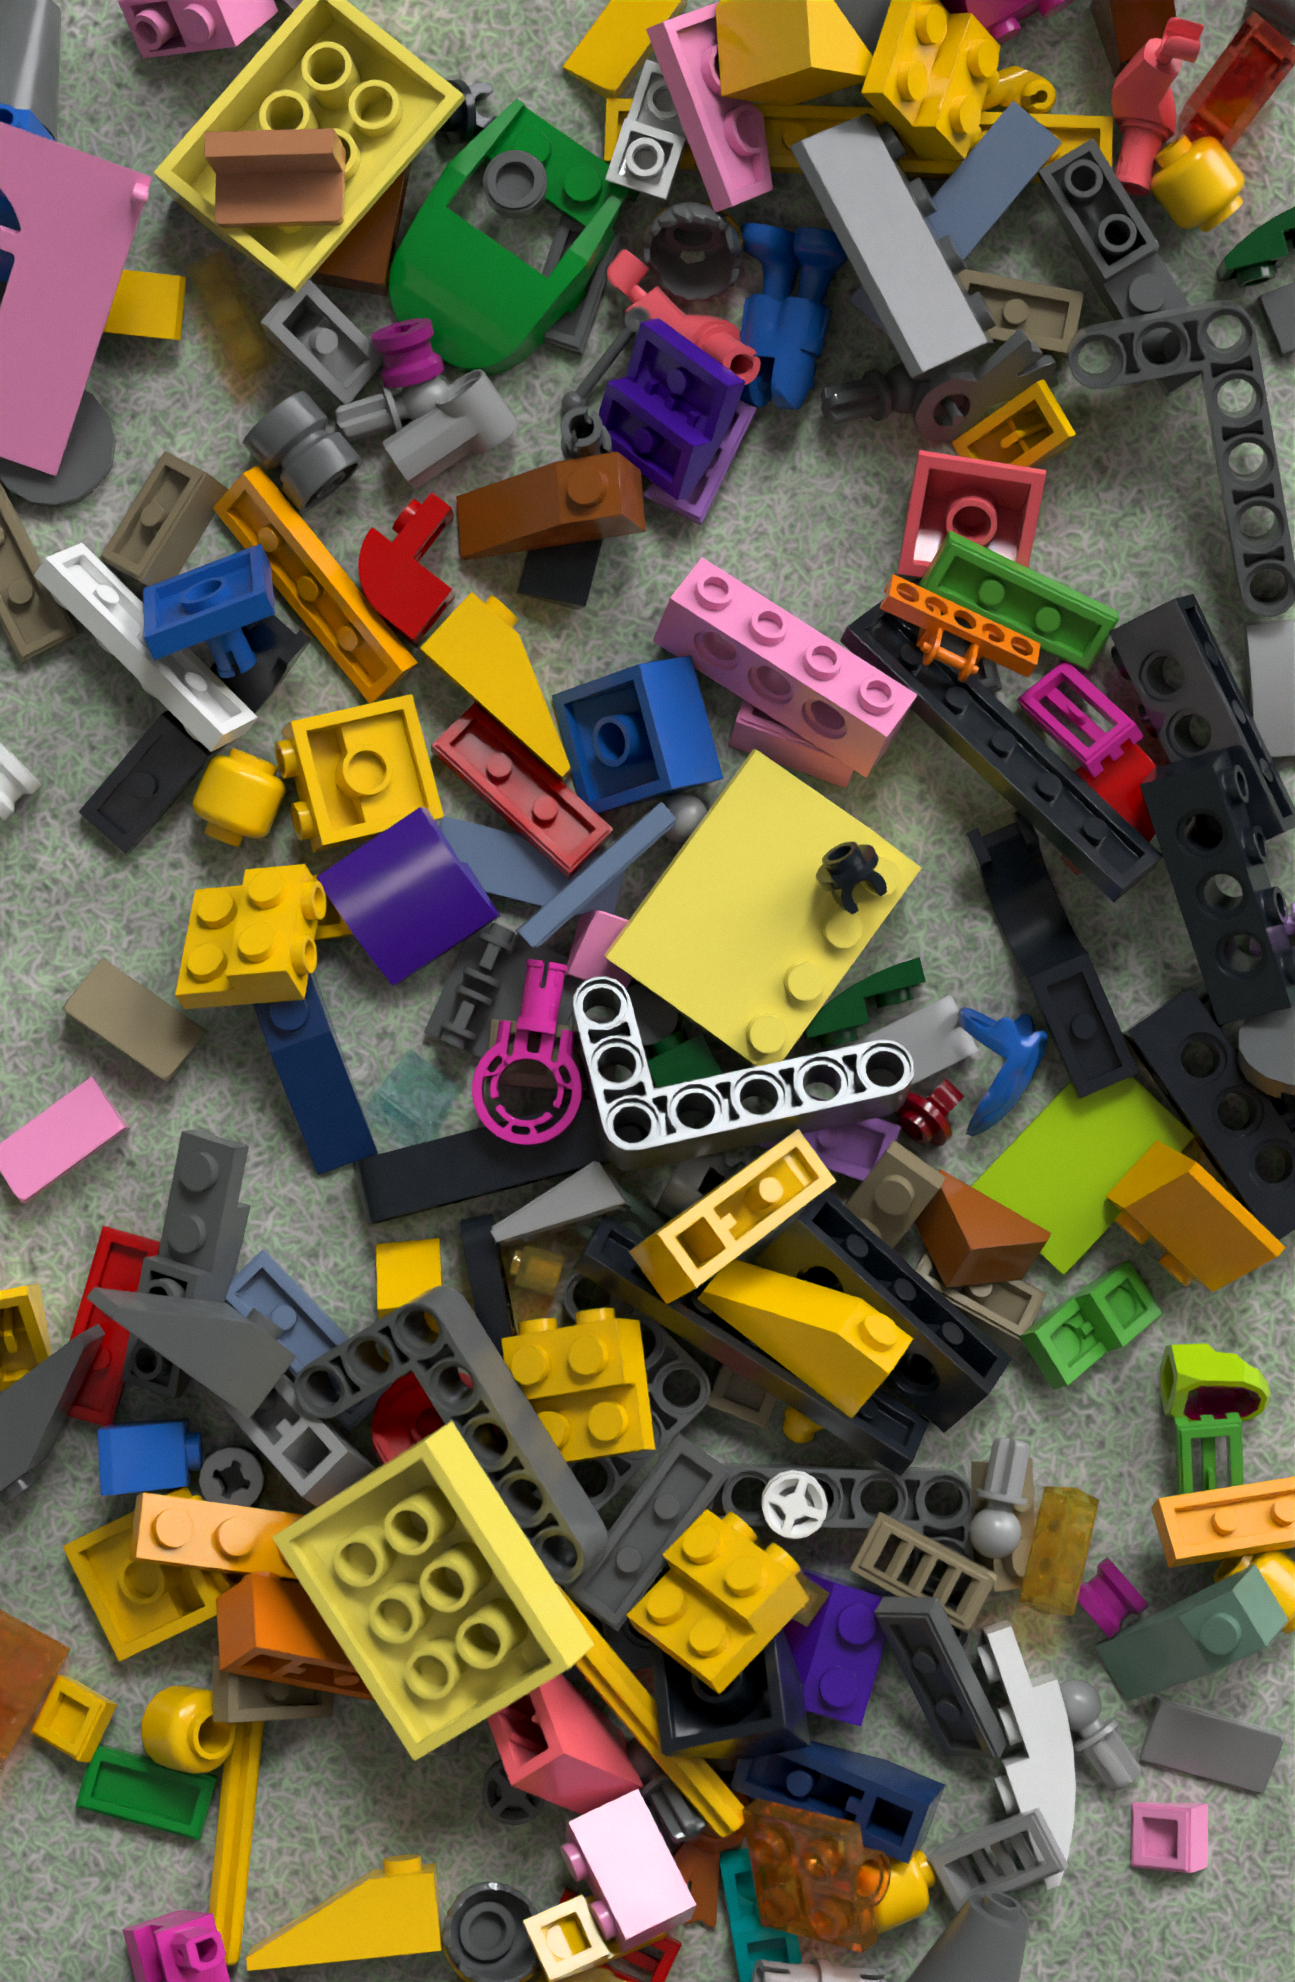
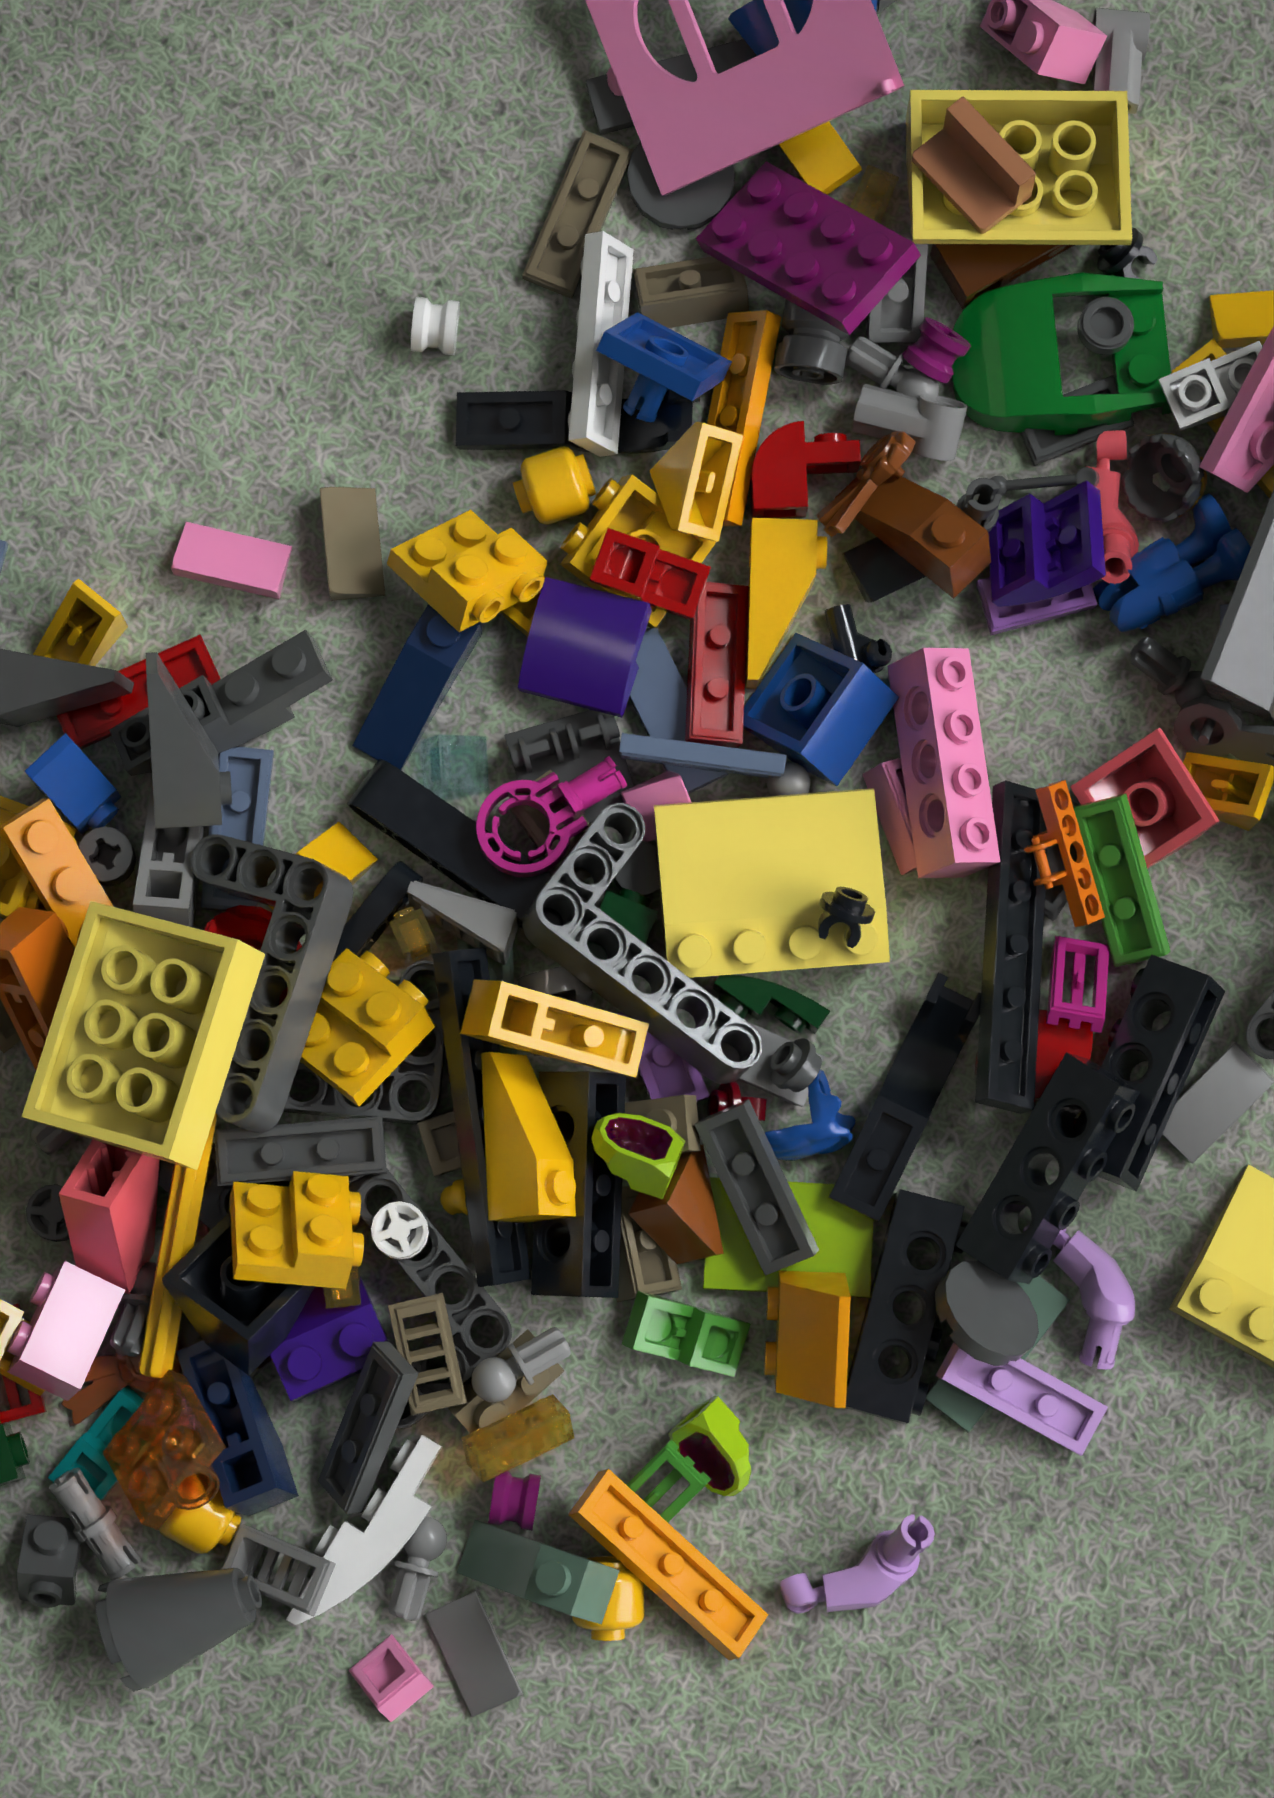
camera: 45 degrees right, 5 degrees down
(219, 387) = (808, 247): none -> magenta plate
(345, 668) = (697, 479): none -> yellow slope
(394, 782) = (650, 574): none -> red slope
(469, 493) = (877, 466): none -> dark orange piece
(609, 654) = (853, 644): none -> black arm
(904, 1235) = (638, 1151): none -> lime rock
(941, 1029) = (795, 1065): none -> dark grey plate
(1020, 1155) = (757, 1187): none -> dark grey plate

